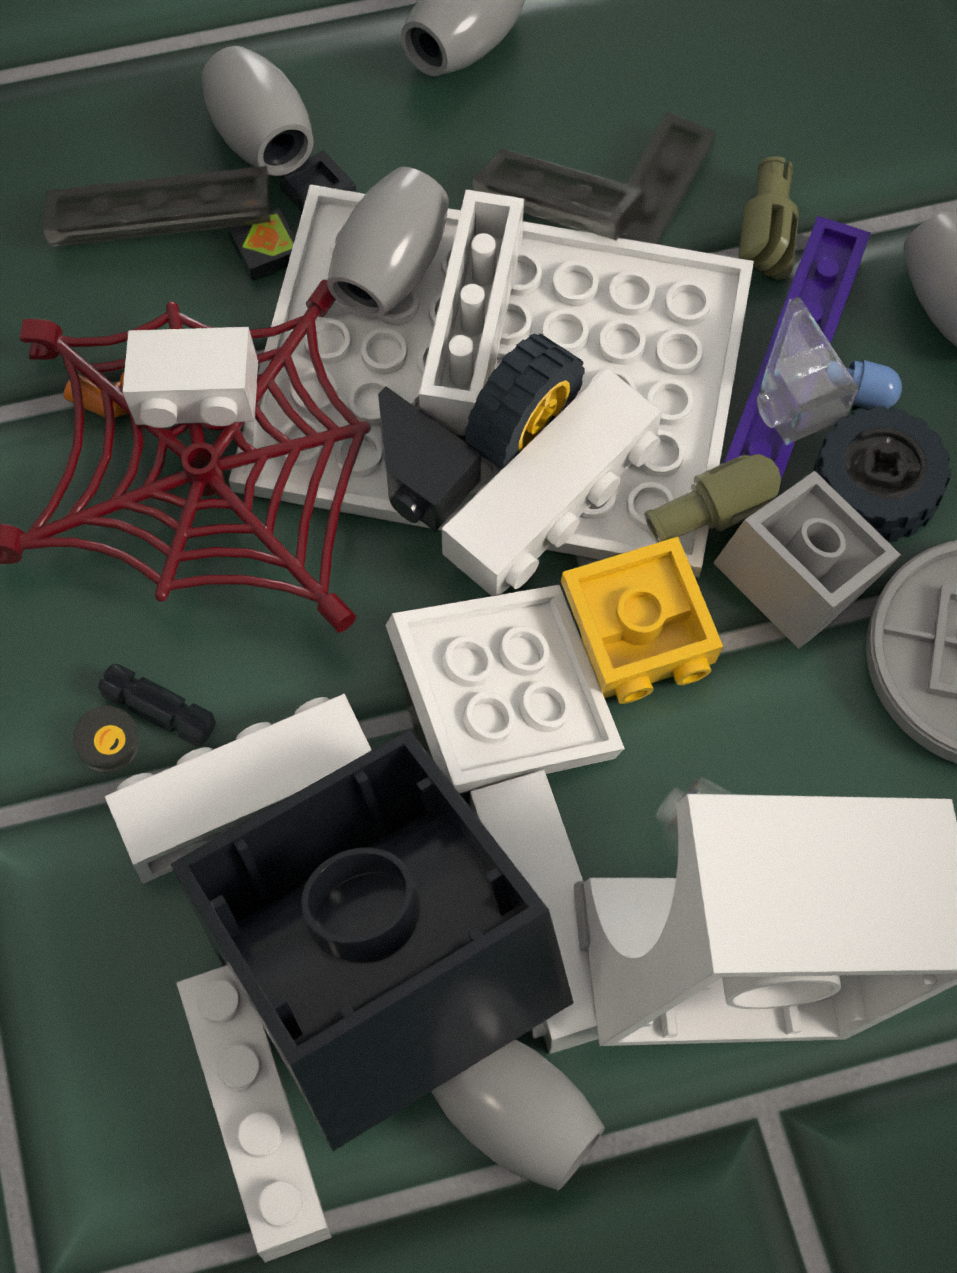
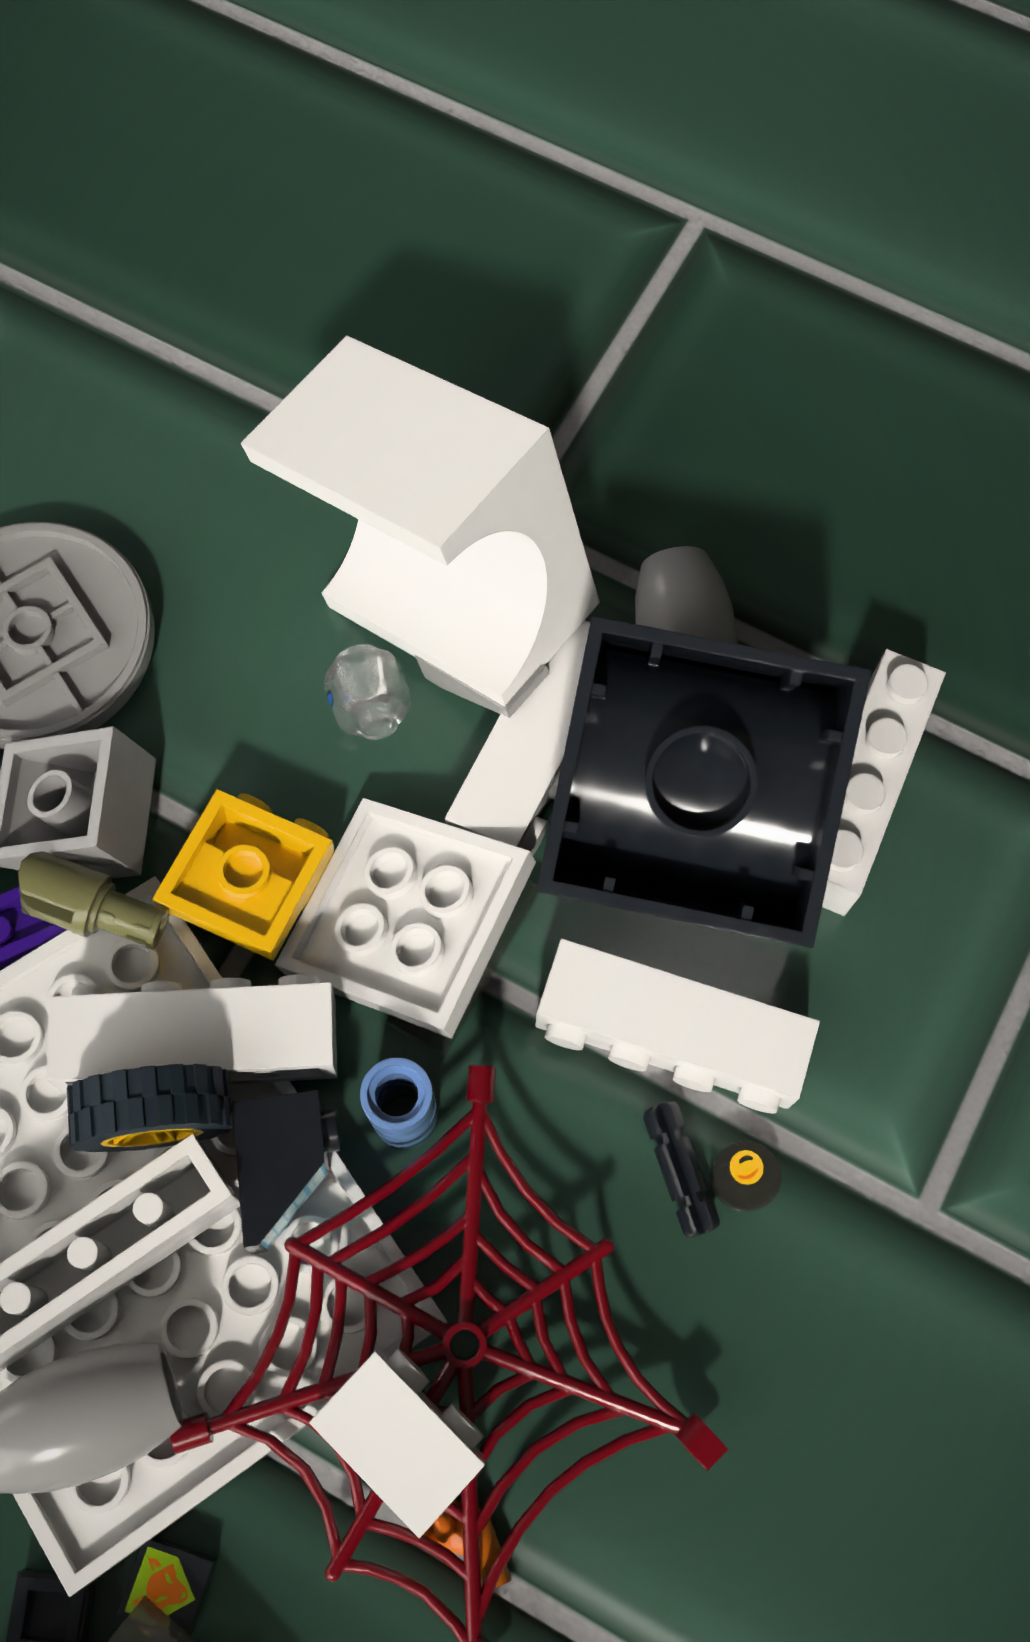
camera: 135 degrees left, 5 degrees up
(378, 558) = (395, 1078): none -> medium blue pin

